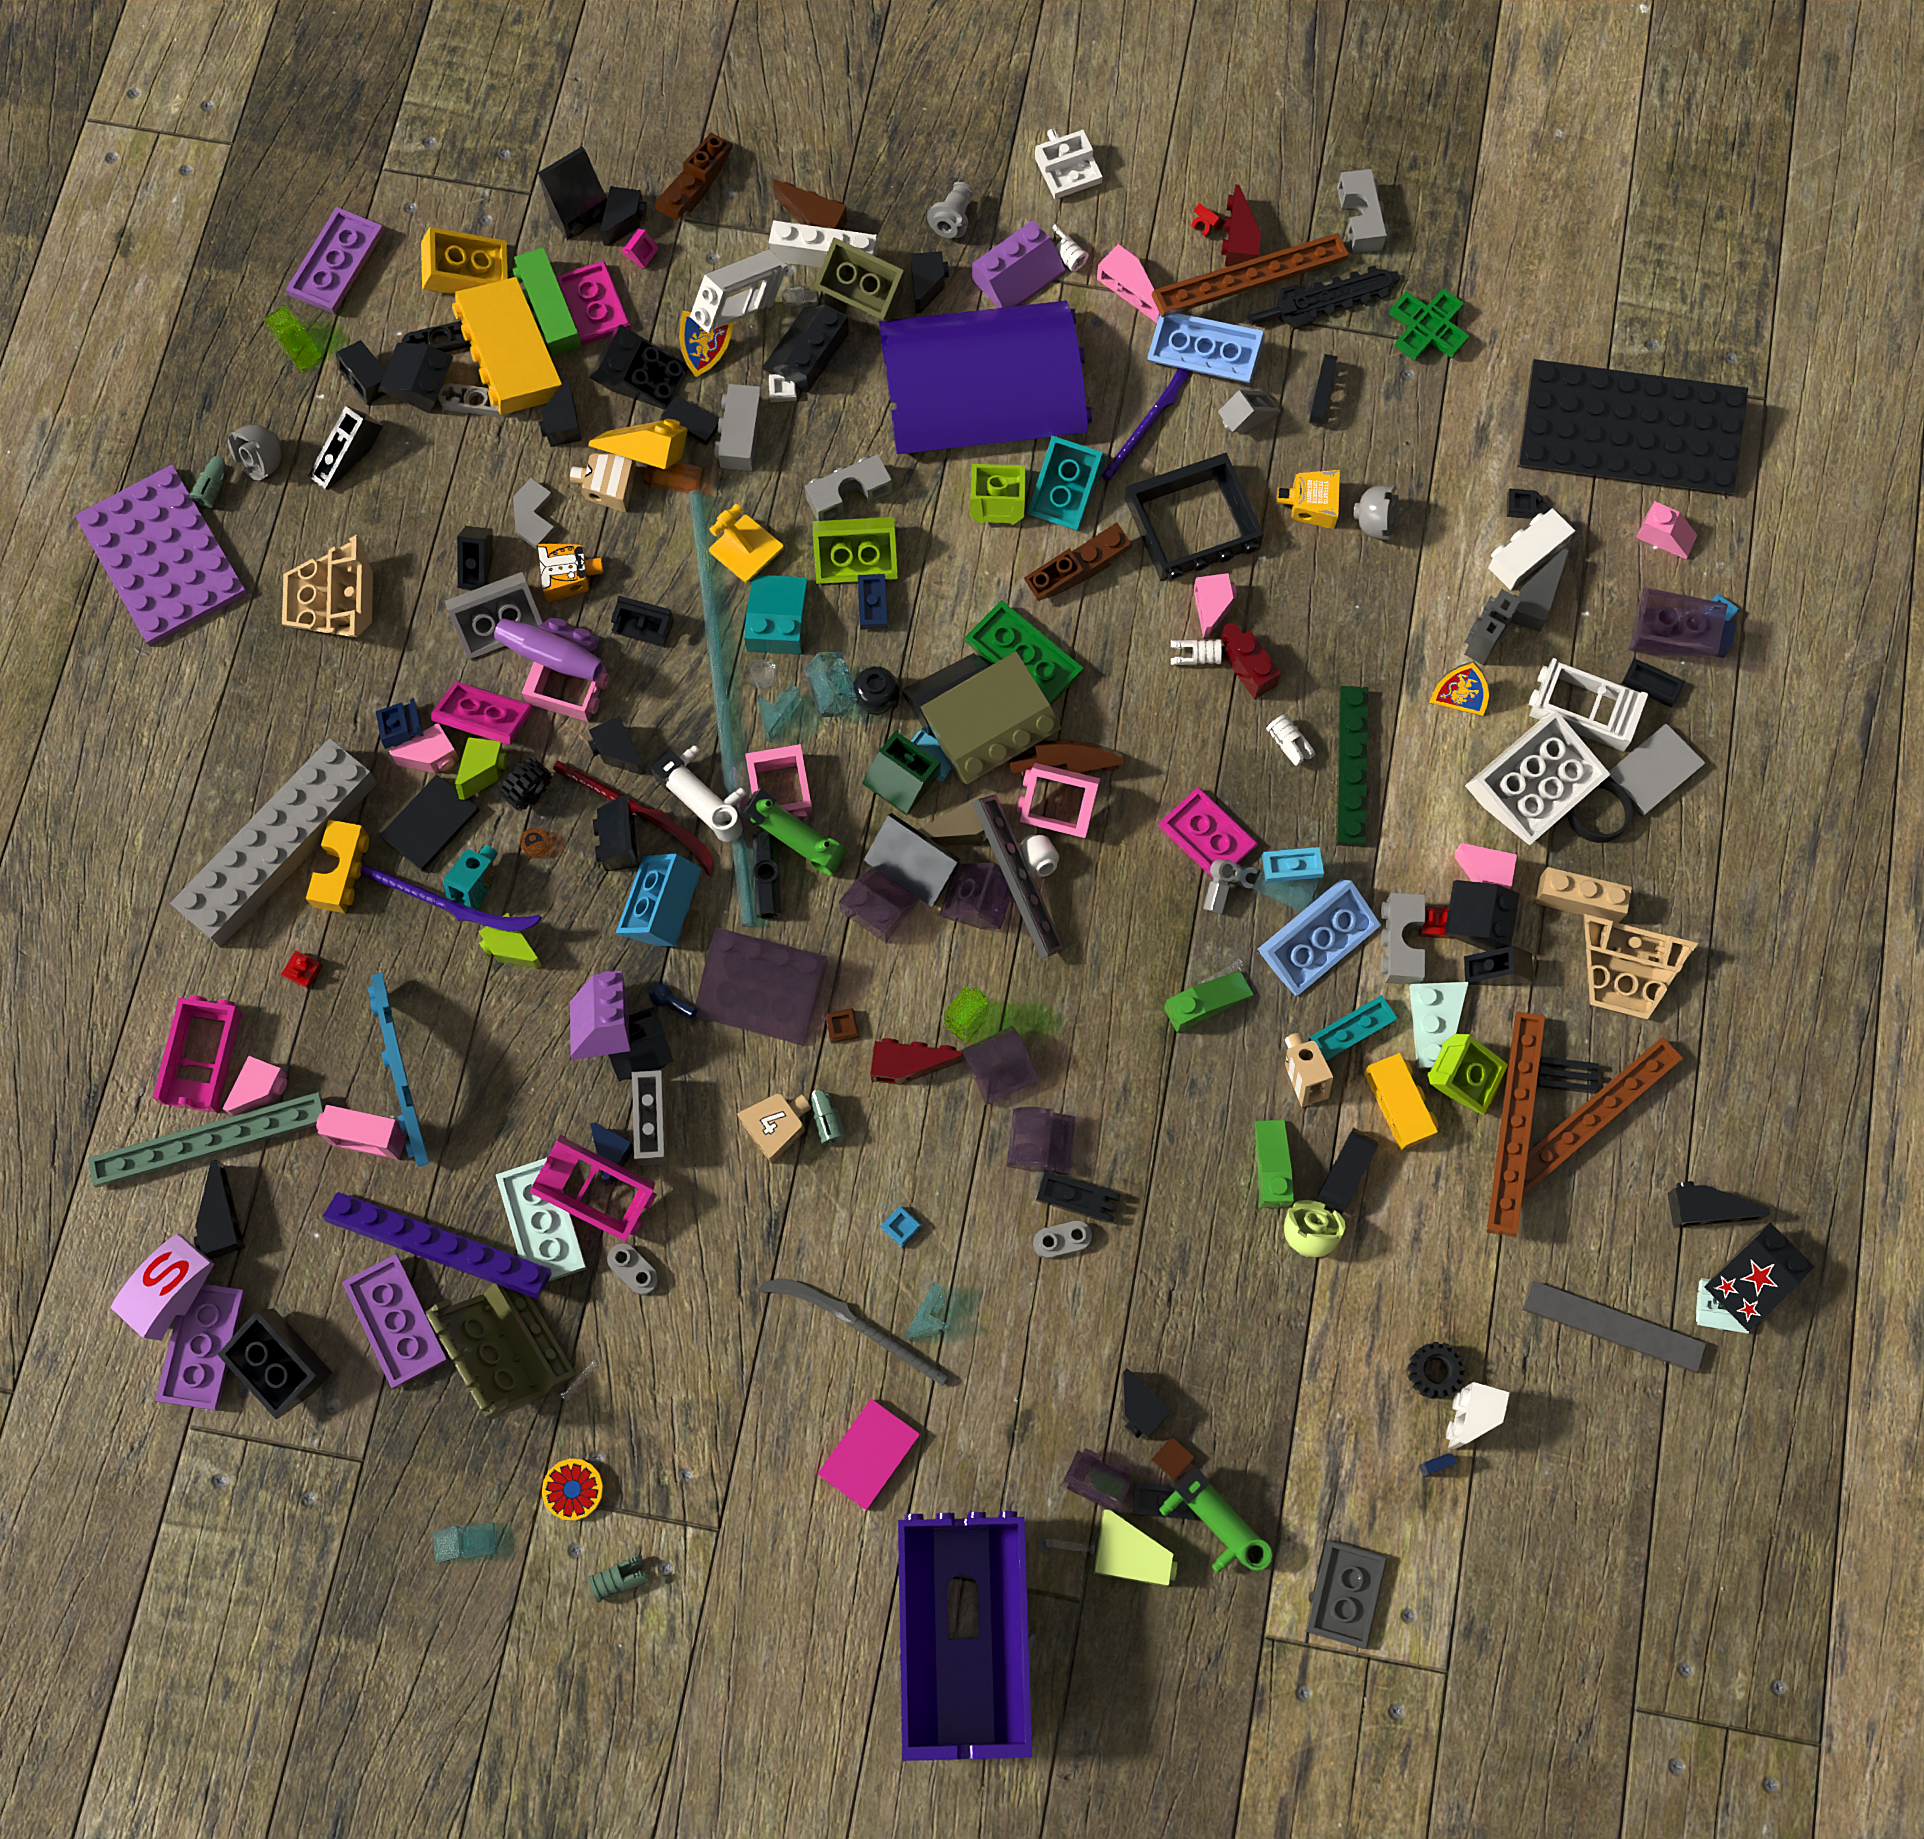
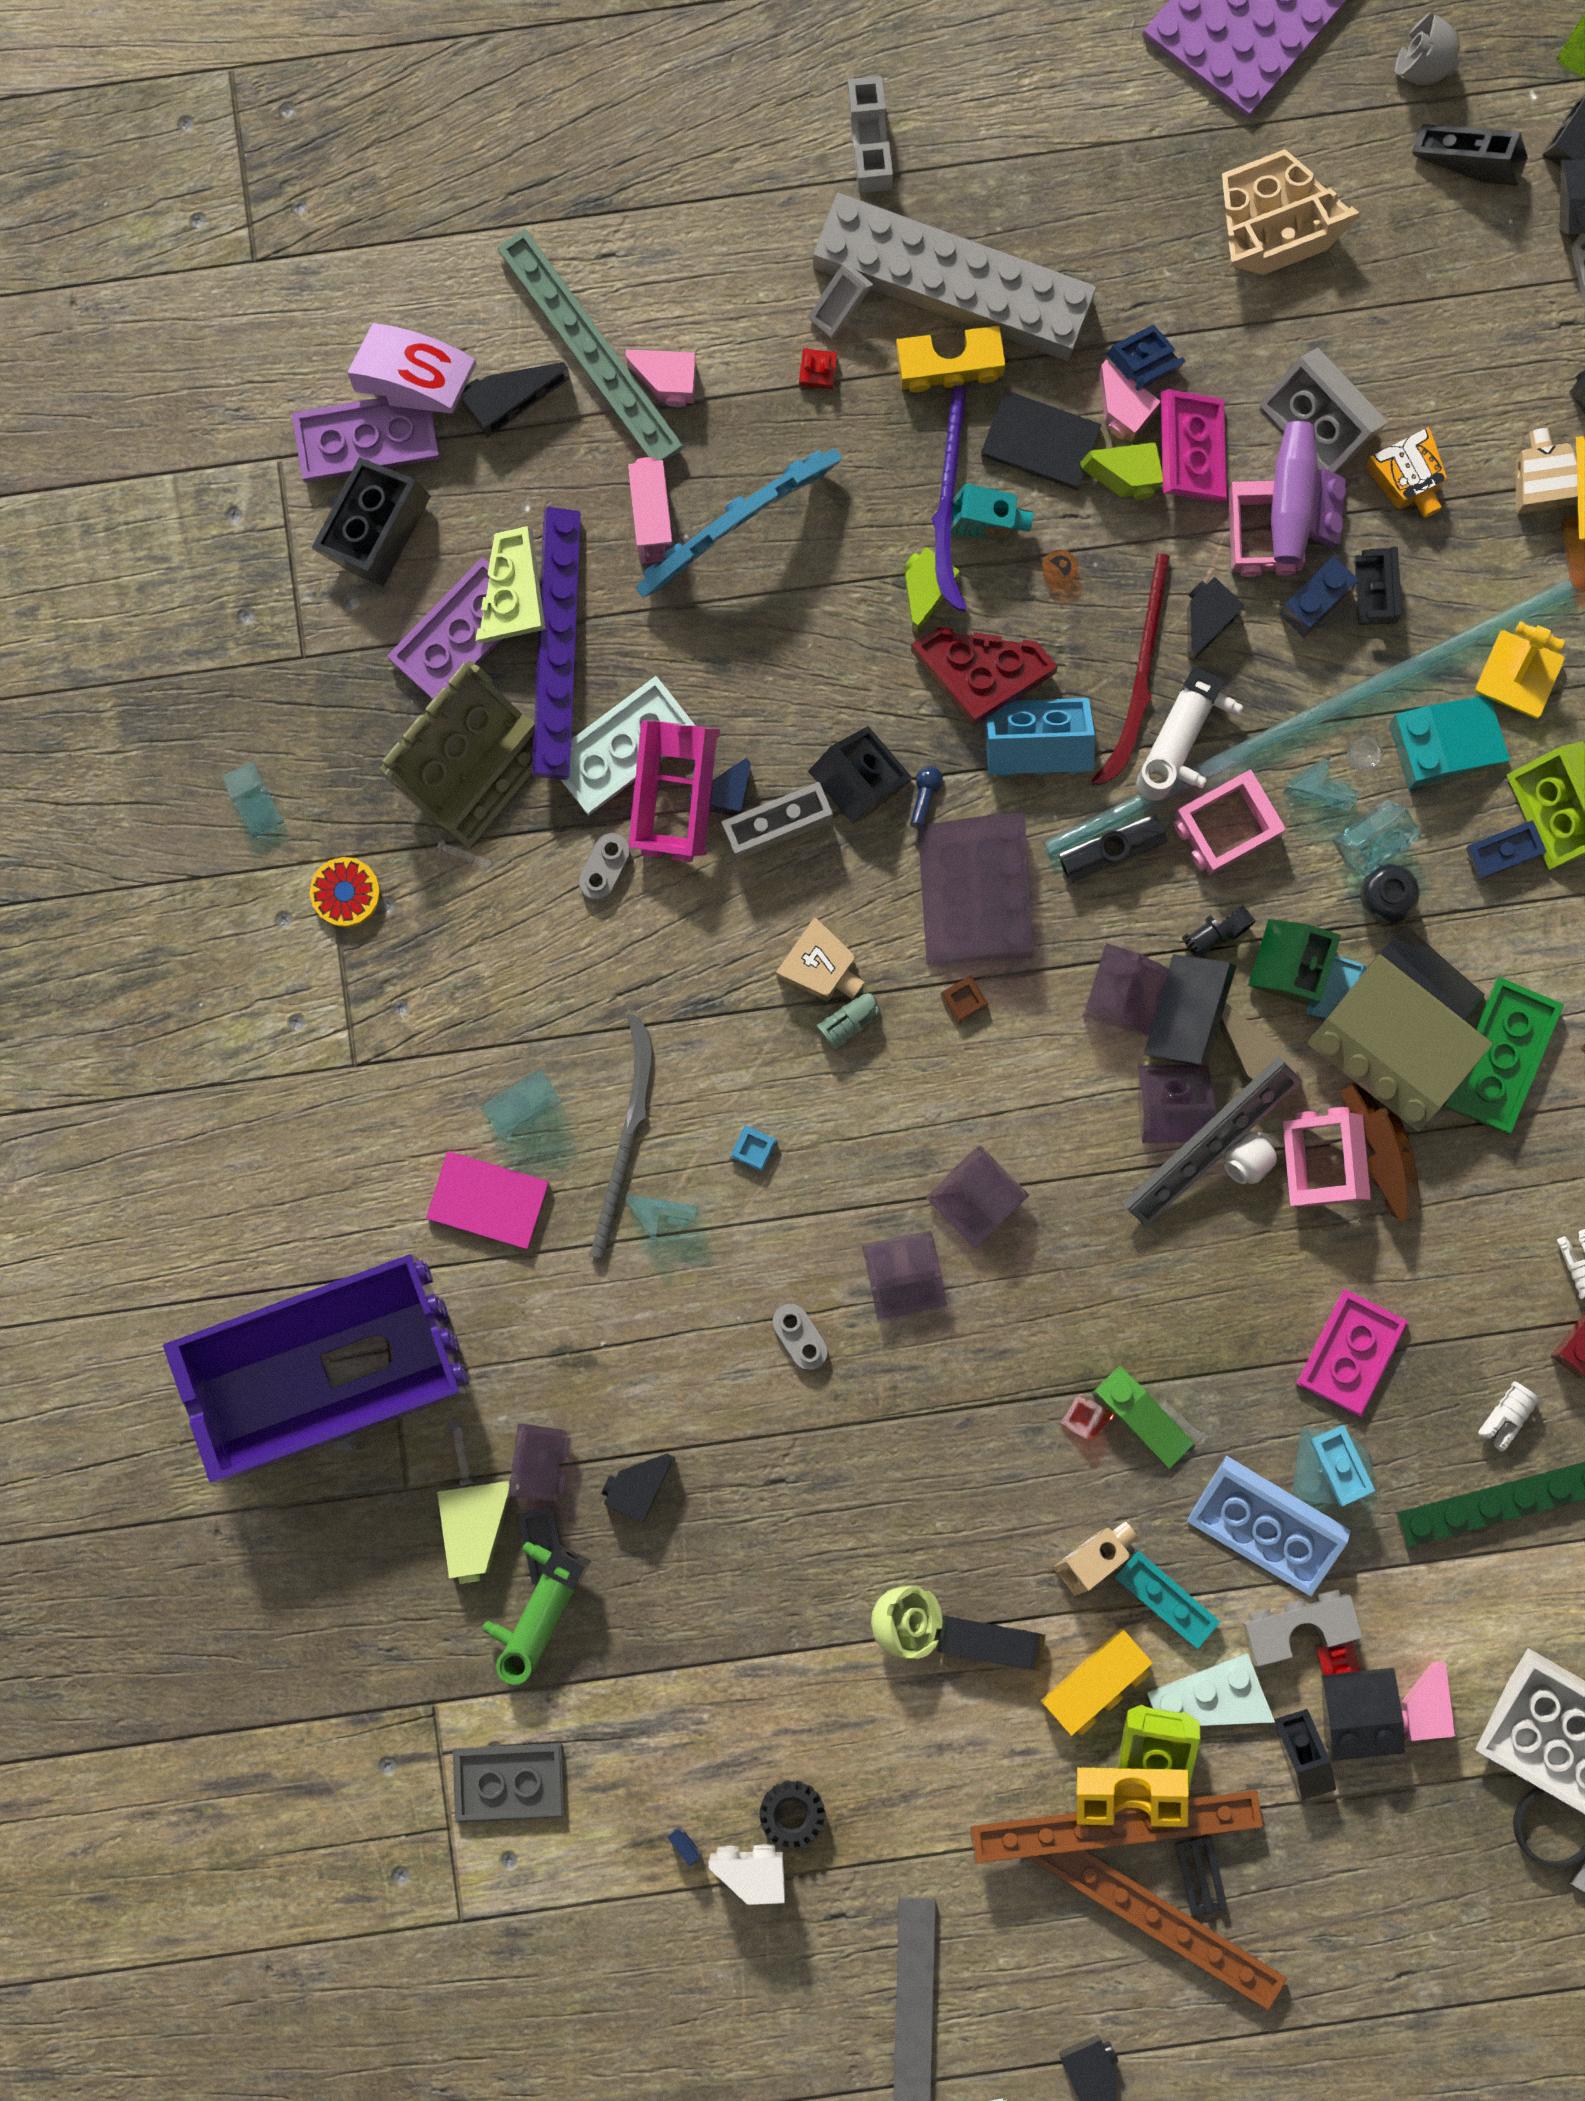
camera: 75 degrees right, 10 degrees up
(149, 870) = (869, 134): none -> light grey arch
(189, 1093) = (635, 301): dark pink door -> none
(209, 483) = (1368, 16): sand green hinge -> none
(256, 932) = (840, 300): none -> light grey tile
(381, 1264) = (513, 590): none -> yellowish green wing
(474, 557) = (1388, 359): black slope -> none
(526, 784) = (1122, 530): black tyre -> none
(527, 504) = (1481, 394): light grey tile -> none
(590, 925) = (982, 669): none -> dark red plate
(600, 1017) = (871, 722): medium lavender slope -> none
(611, 1580) = (262, 971): sand green hinge -> none
(616, 835) = (1098, 658): black slope -> none
(633, 664) = (1318, 596): none -> dark blue brick
(801, 1398) = (521, 1104): none -> clear light blue brick
(821, 851) = (1172, 860): bright green piece -> none
(858, 823) = (1213, 933): none -> black connector
(903, 1063) = (941, 1085): dark red slope -> none
(966, 1013) = (1023, 1138): clear neon green brick -> none
(1077, 1197) = (853, 1337): black hinge -> none
(1172, 1458) = (594, 1540): reddish brown tile -> none
(1195, 1043) = (1086, 1417): none -> clear red slope
(1224, 872) = (1305, 1386): light grey bar -> none
(1273, 1164) = (972, 1553): bright green slope -> none
(1500, 1079) = (1109, 1790): none -> yellow arch
(1582, 895) = (1434, 1833): tan brick -> none
(1630, 965) = (1364, 1915): tan wedge -> none

